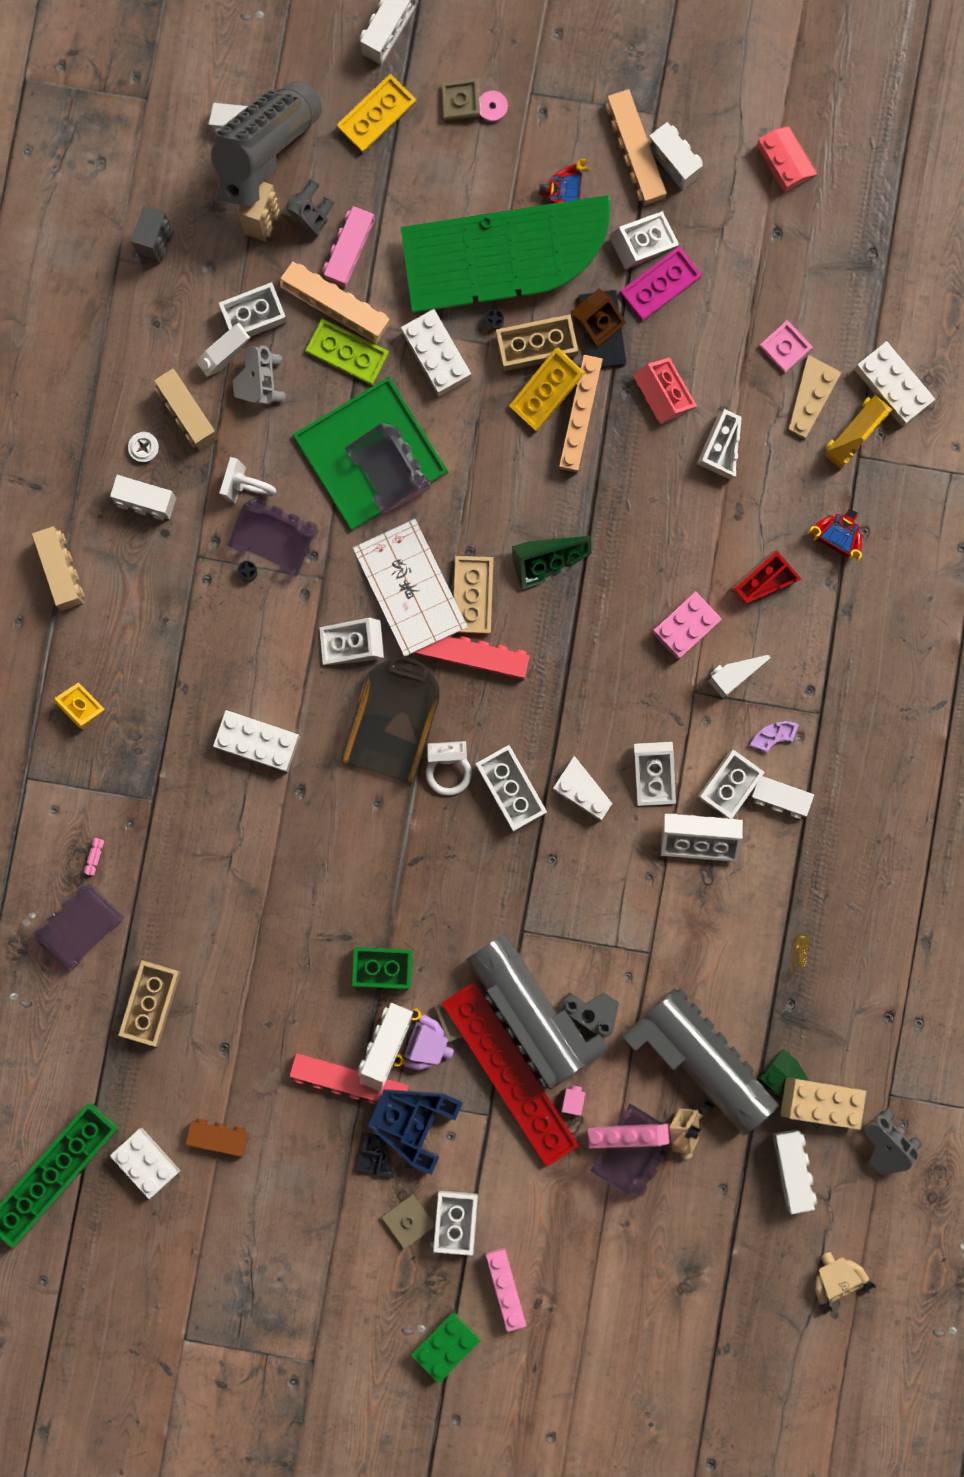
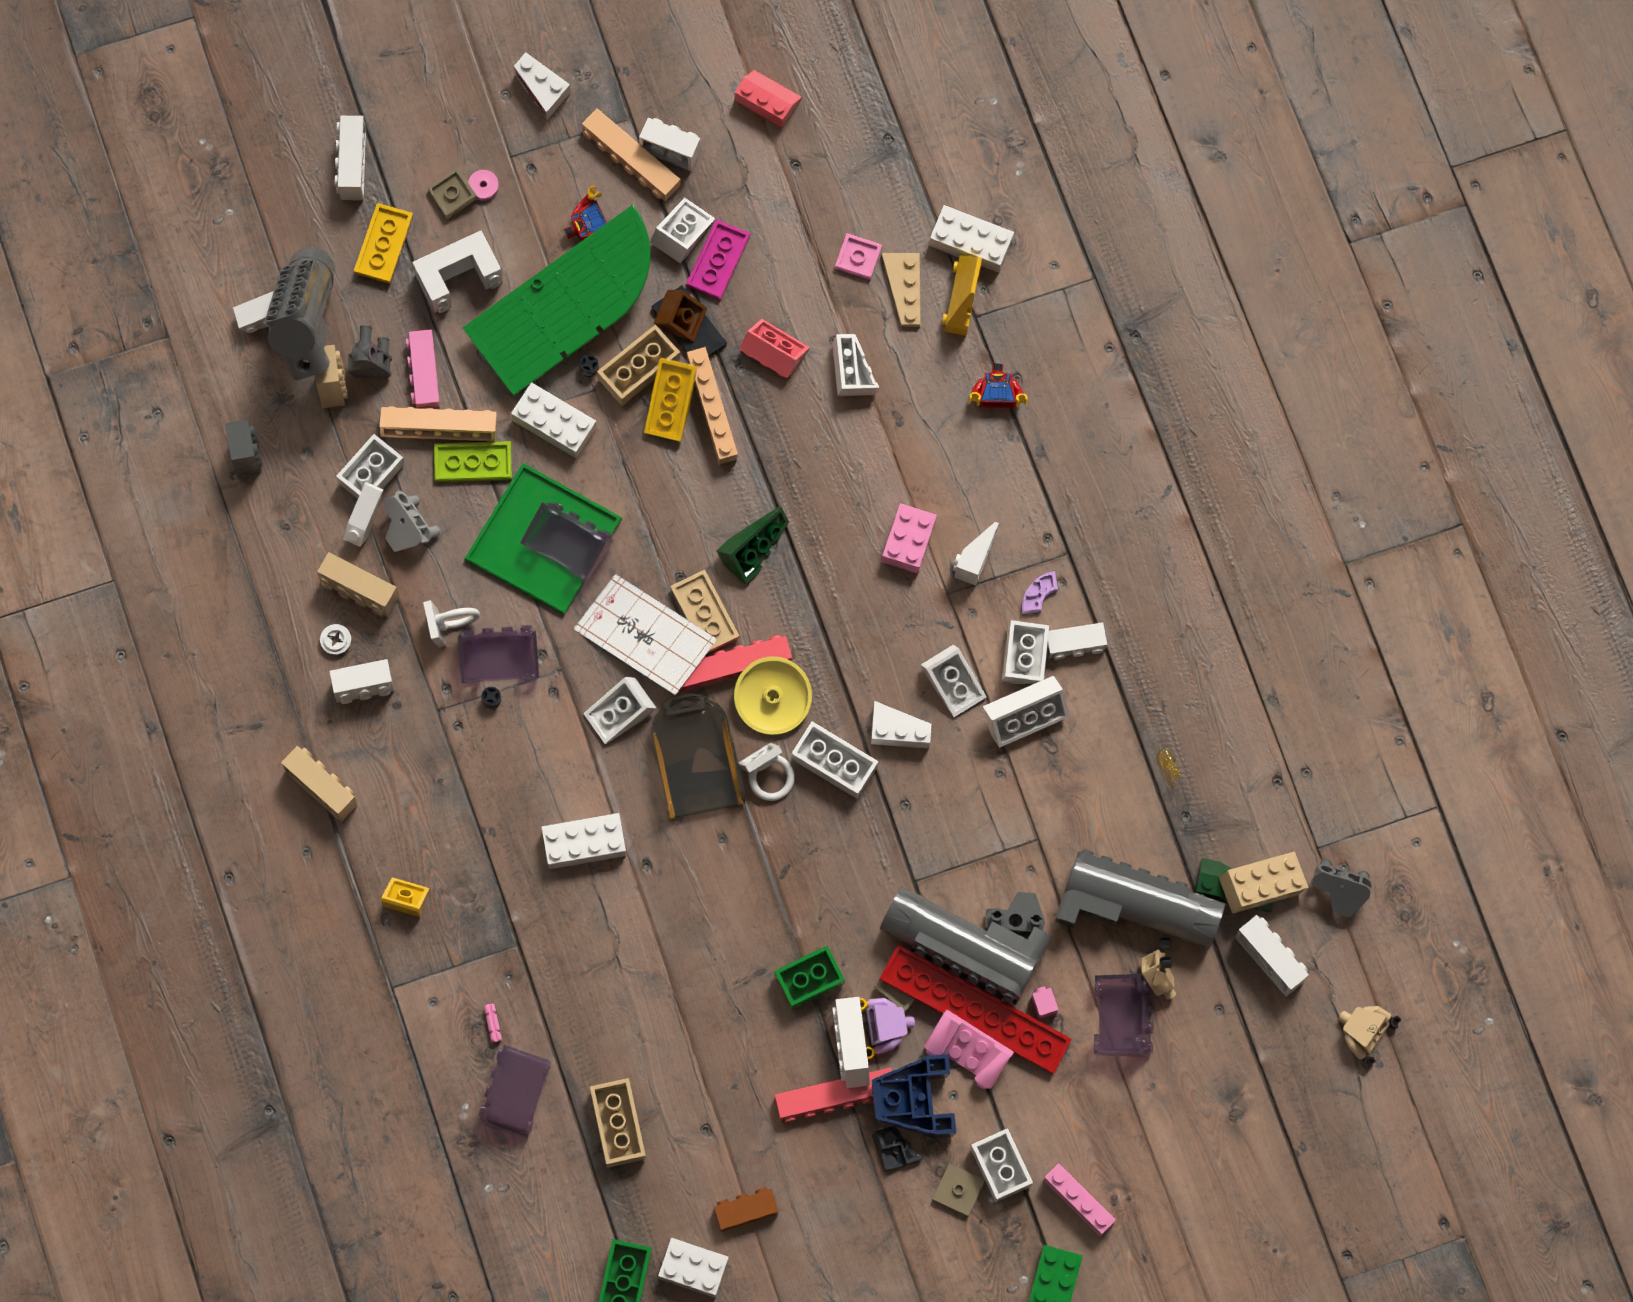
camera: 35 degrees left, 10 degrees down
(425, 161) = (453, 260): none -> white piece
(485, 1106) = (969, 1049): none -> bright pink piece
(489, 702) = (772, 695): none -> light yellow dish
(593, 42) = (542, 84): none -> white wedge
(628, 1136) = (1110, 1002): bright pink brick -> none
(765, 578) = (954, 460): red wedge -> none

